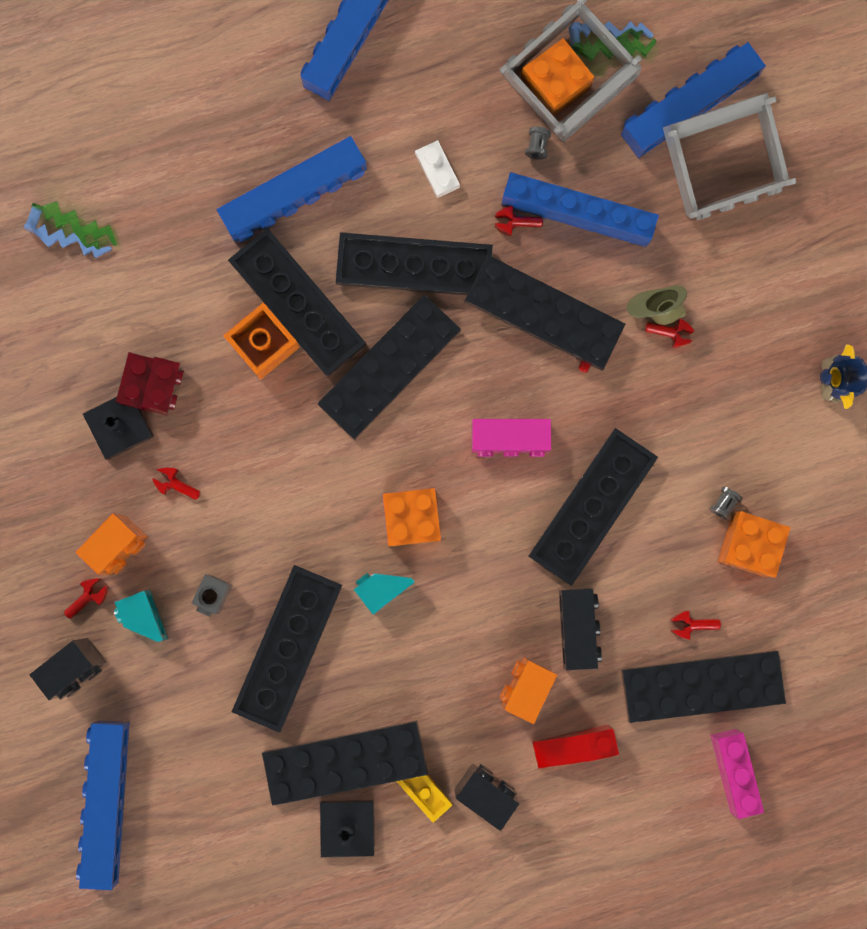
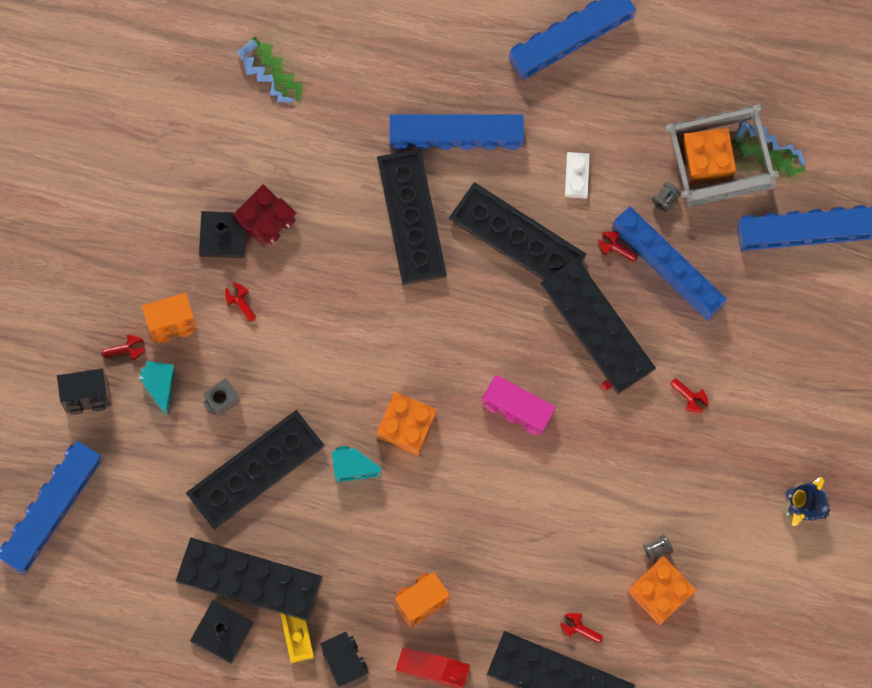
camera: 30 degrees right, 10 degrees down
(261, 341) = (368, 230): orange brick -> none
(389, 367) = (454, 303): black plate -> none
(579, 629) = (488, 579): black brick -> none
(593, 506) = (551, 493): black plate -> none
(660, 304) = (692, 370): olive piece -> none
(758, 104) = (812, 250): light grey window -> none

